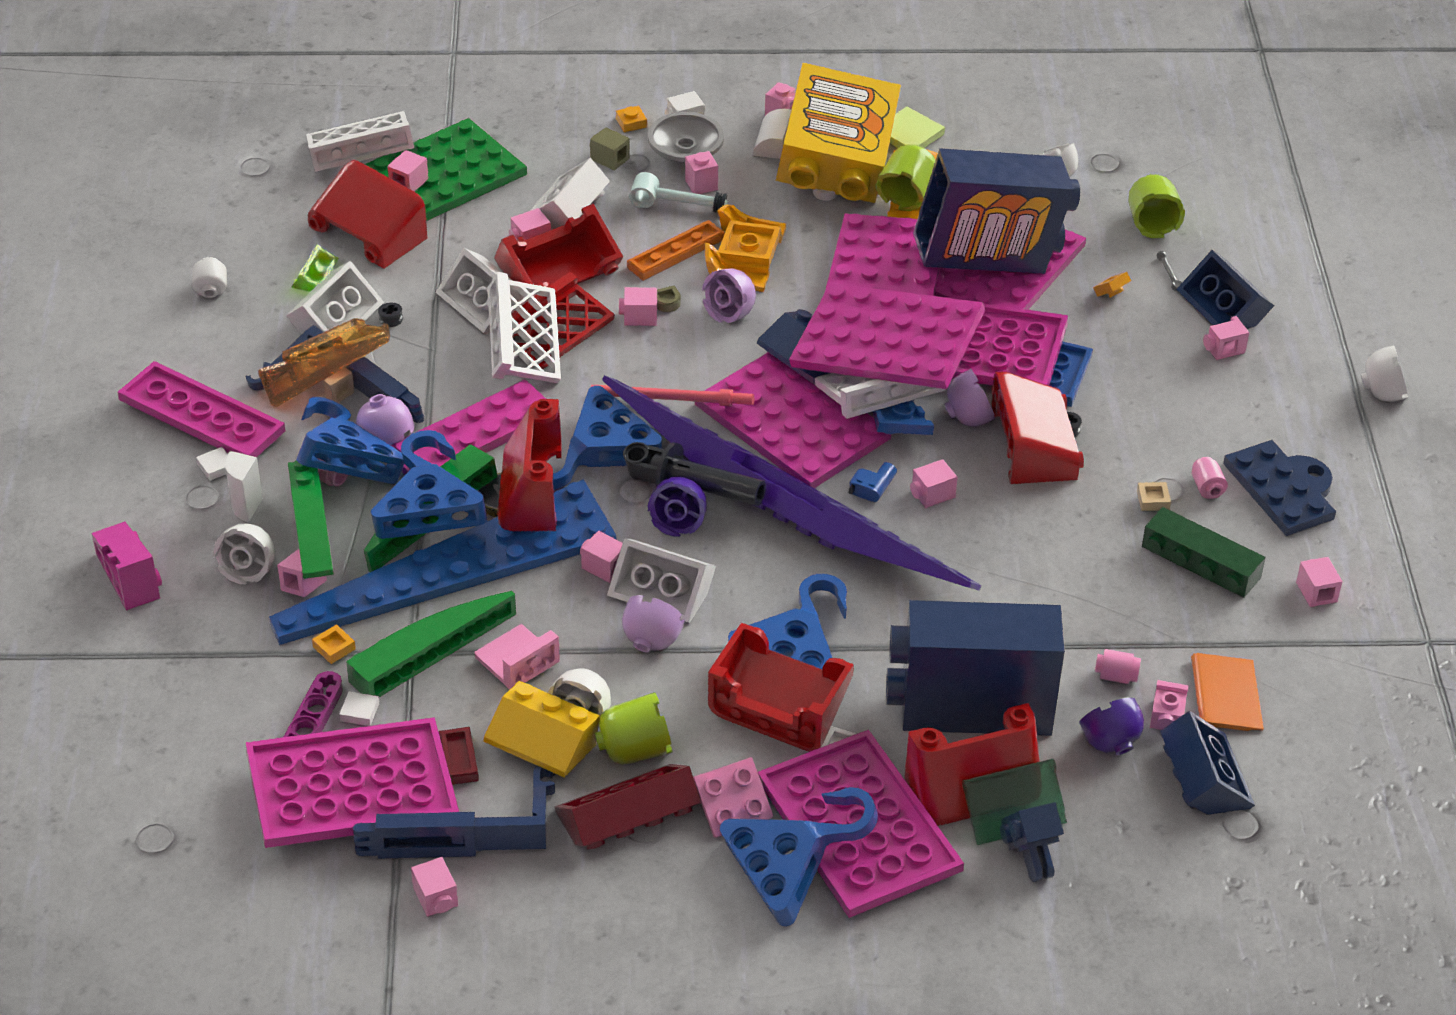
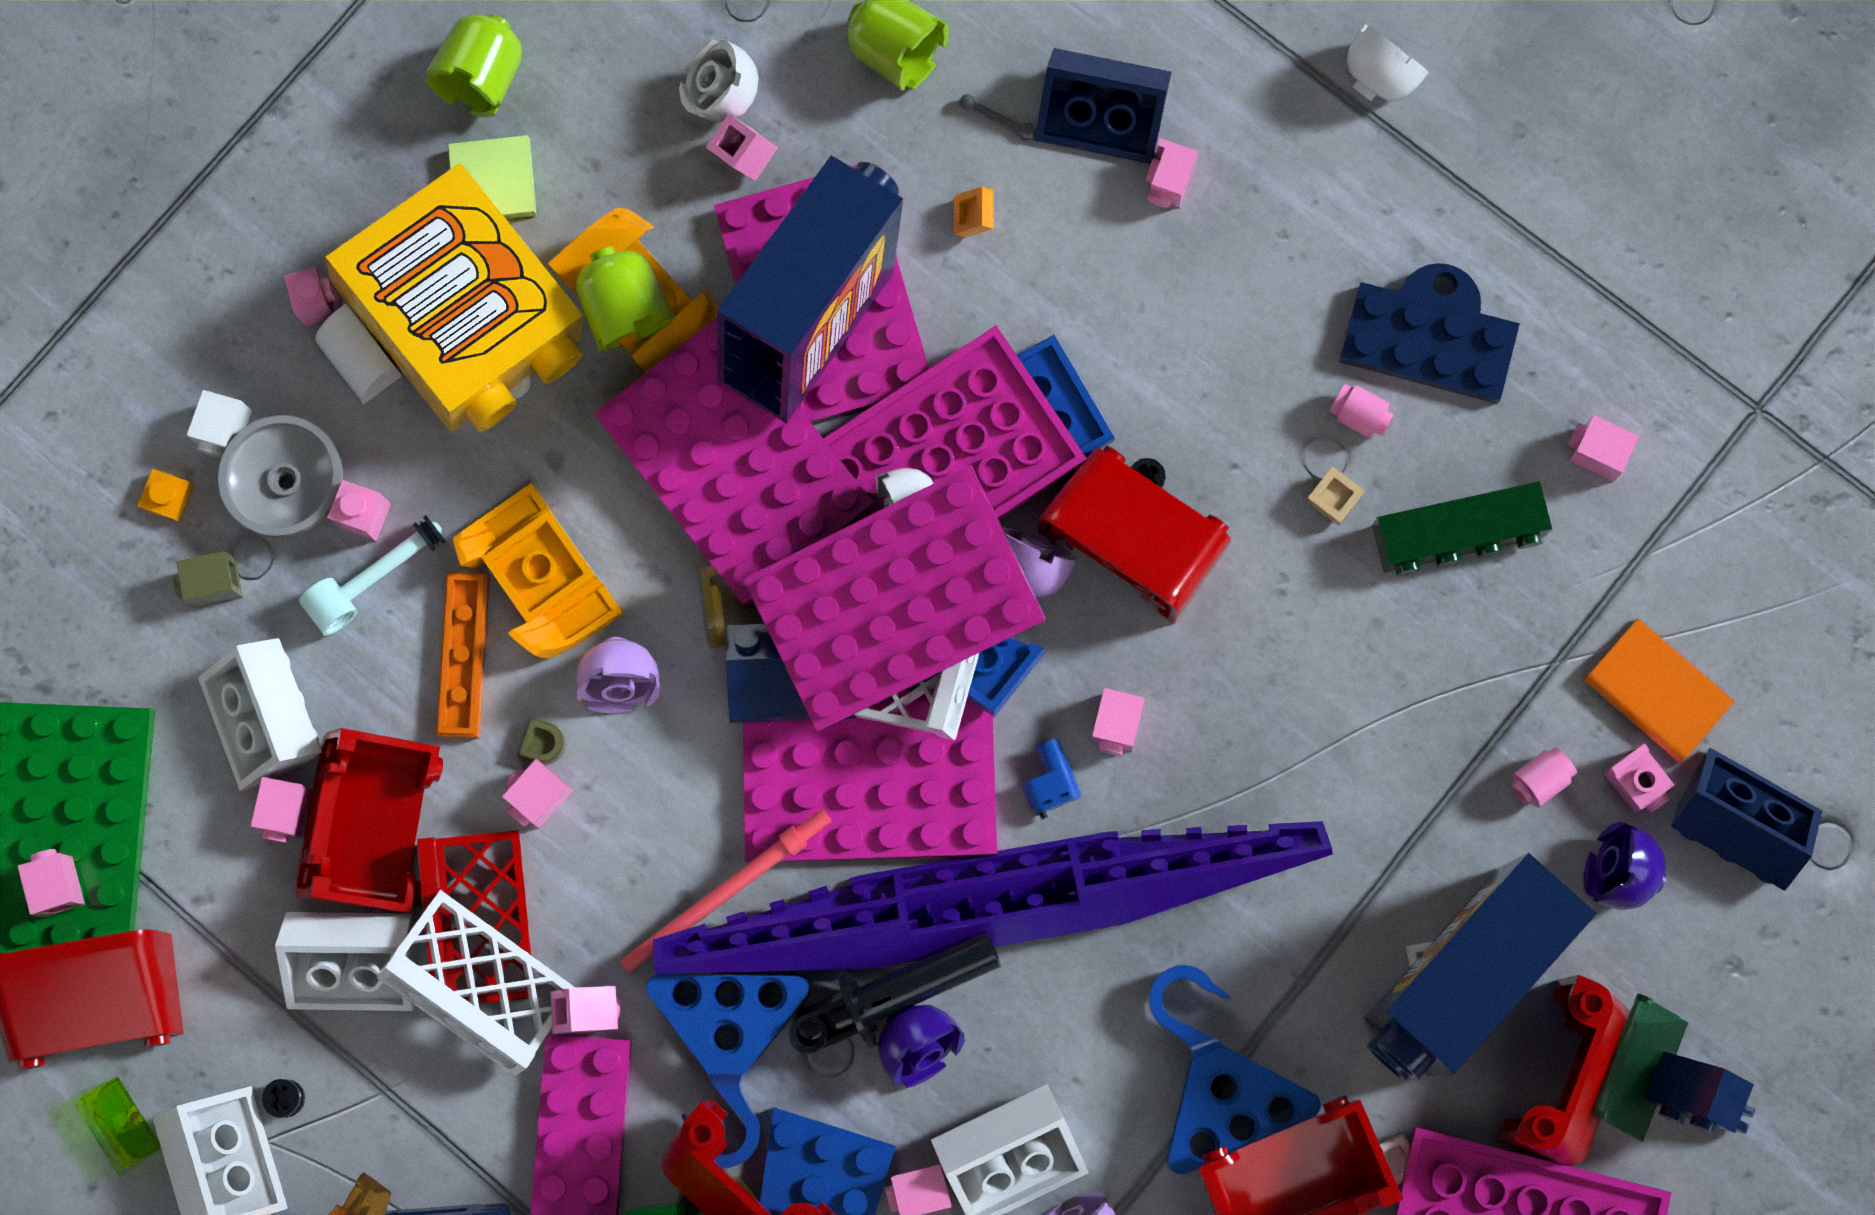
camera: 40 degrees left, 35 degrees up
(554, 378) = (584, 1009): none -> bright pink brick
(806, 296) = (711, 607): none -> clear yellow tile
(954, 86) = (476, 63): none -> lime cylinder

